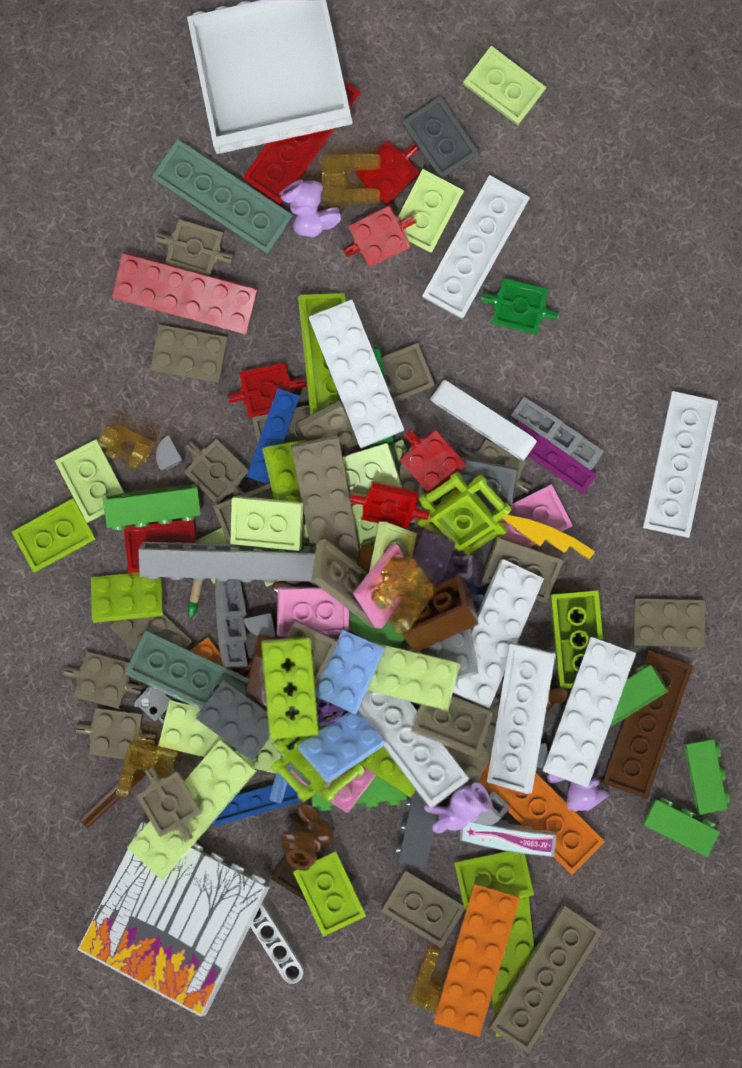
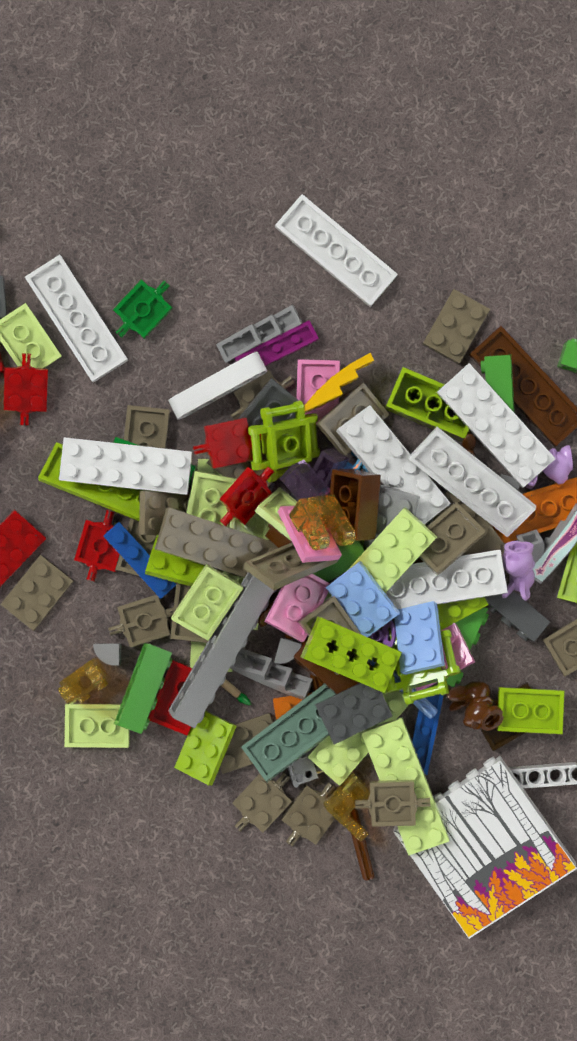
camera: 60 degrees left, 0 degrees up
(53, 535) = (124, 780): lime plate -> none

